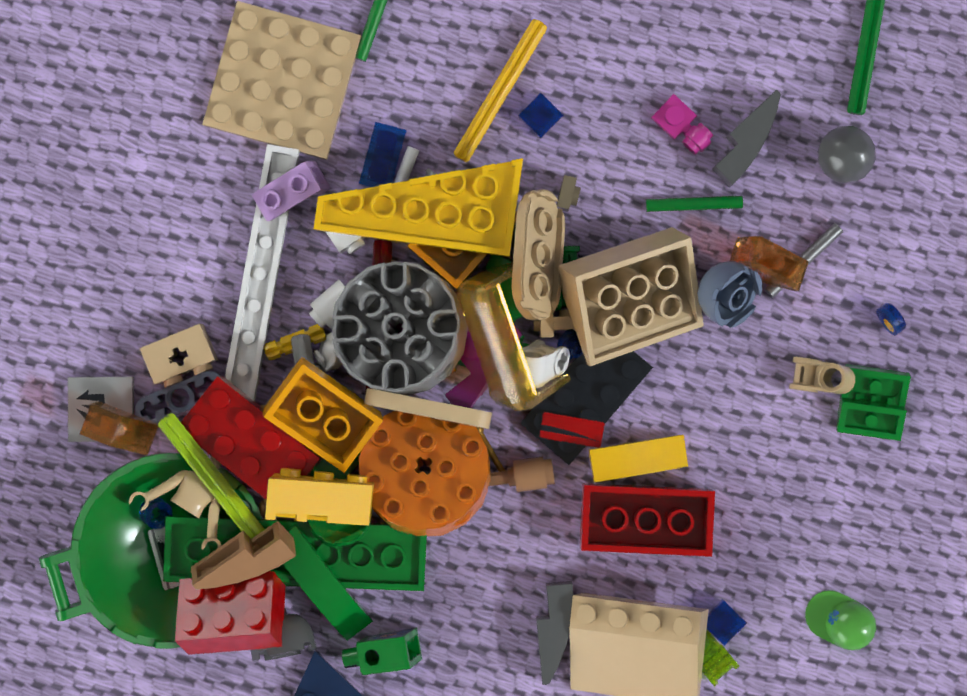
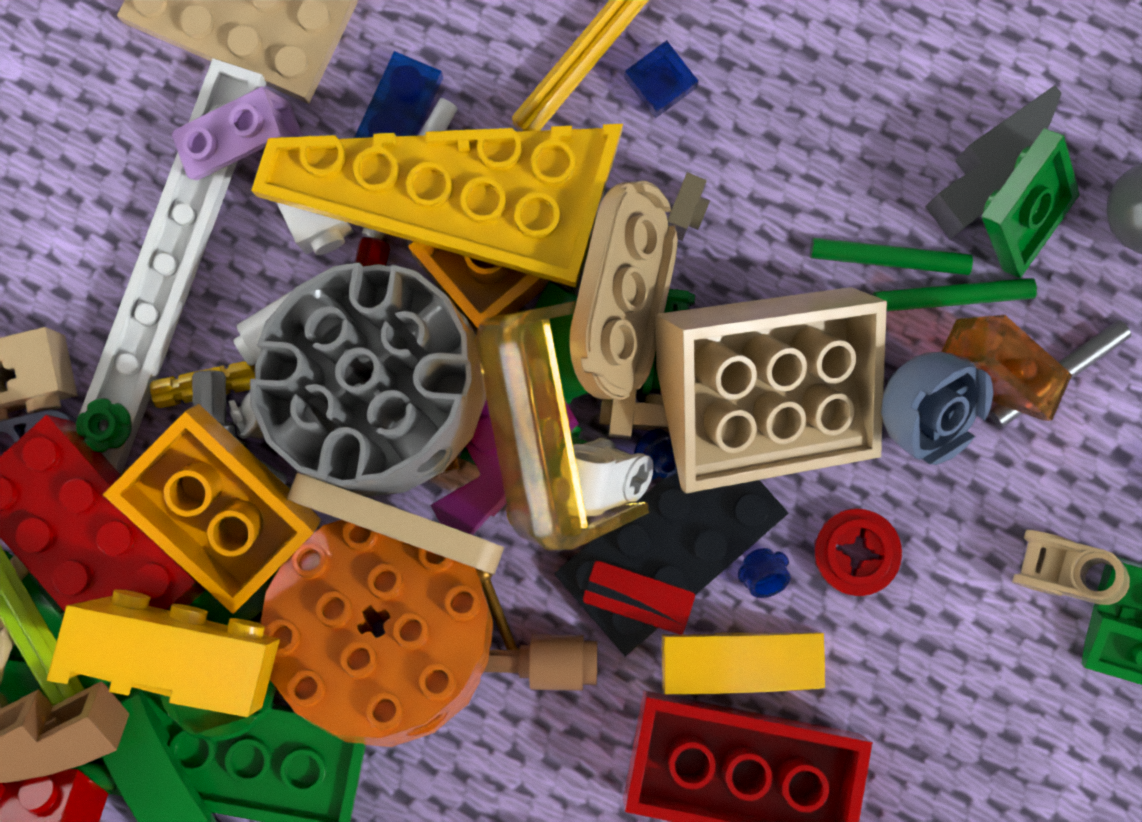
camera: 10 degrees right, 5 degrees down
(252, 376) = (118, 427): none -> green plate
(643, 404) = (765, 572): none -> clear blue plate
(675, 119) = (879, 117): dark pink plate -> none
(706, 396) = (877, 536): none -> red gear
(735, 221) = (958, 294): none -> green bar
(770, 164) = (1031, 202): none -> green plate

